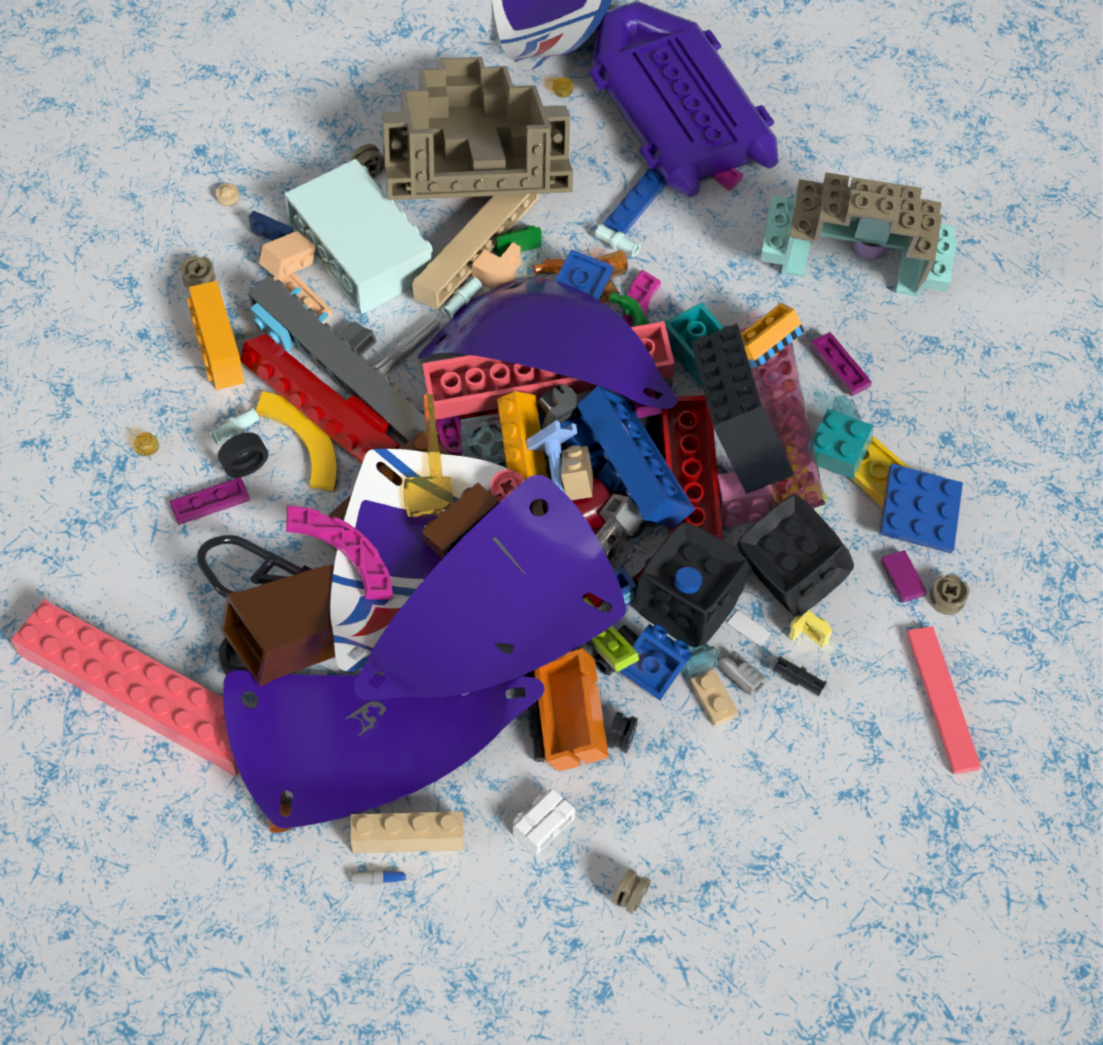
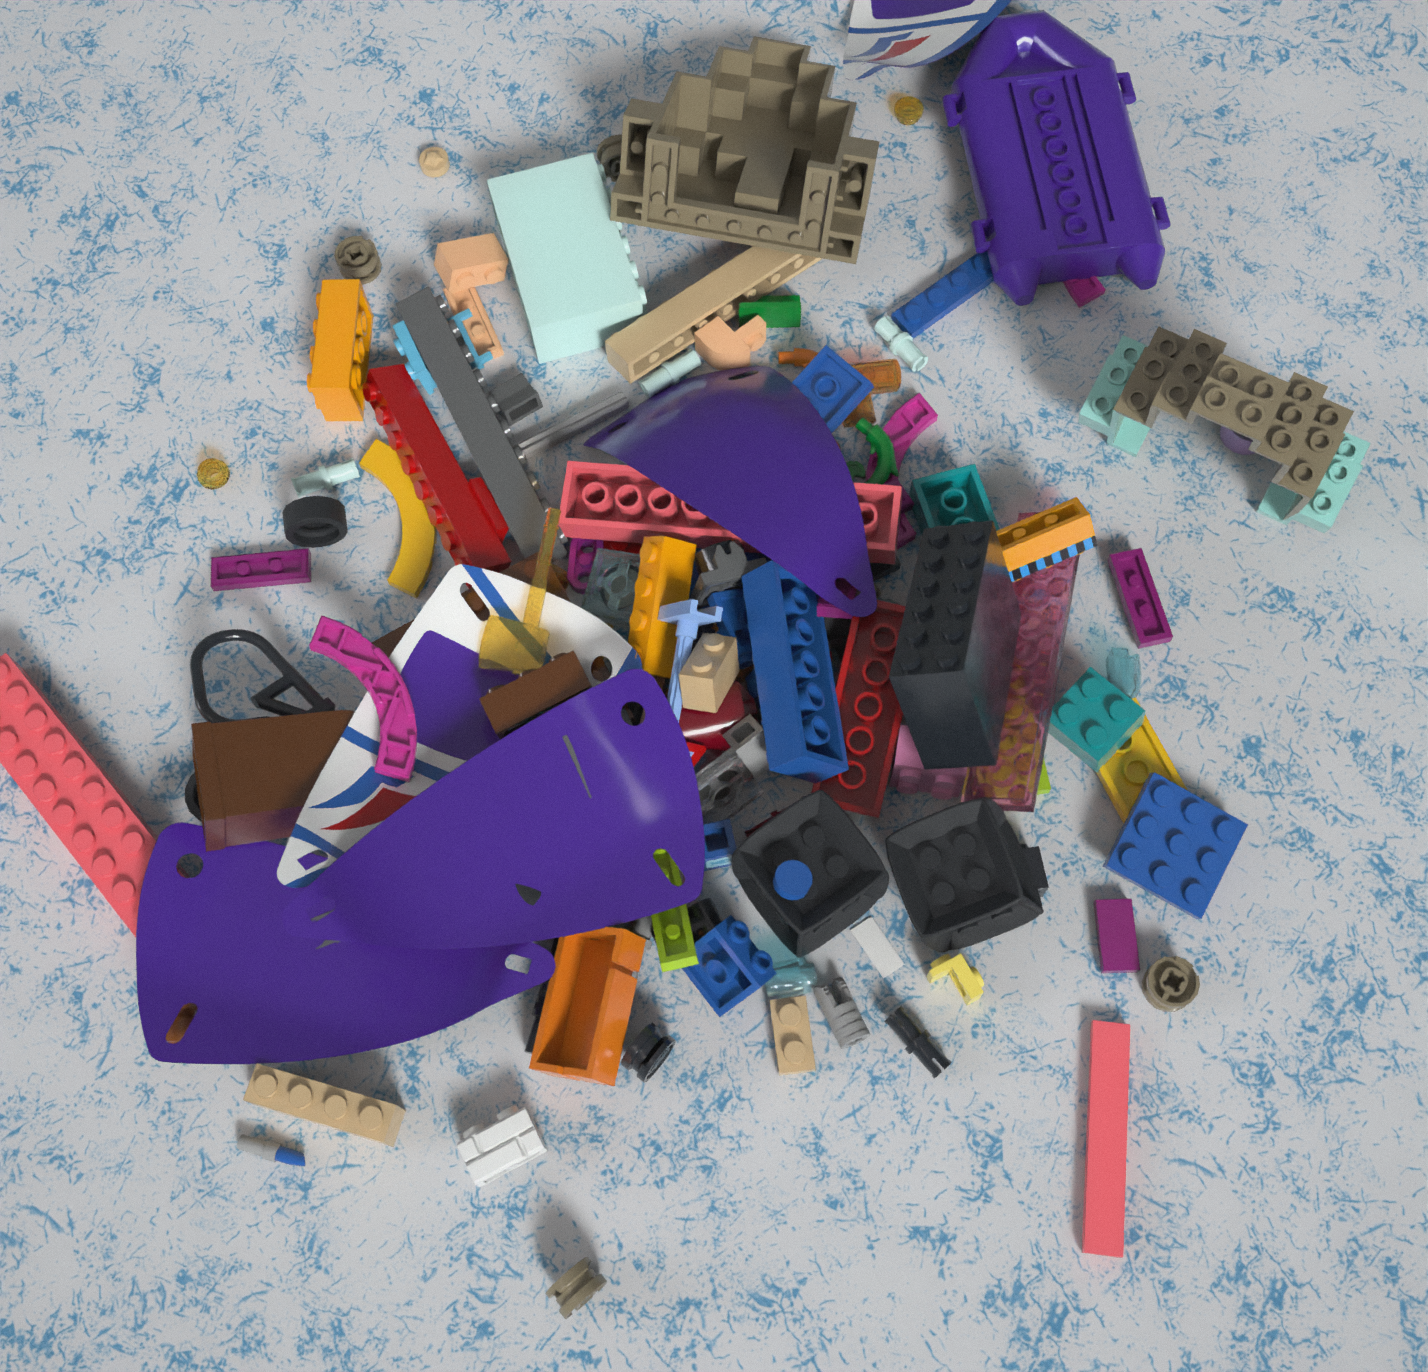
camera: 25 degrees right, 10 degrees up
(267, 227) = (462, 217): dark blue plate -> none
(504, 483) = (611, 661): coral wheel -> none

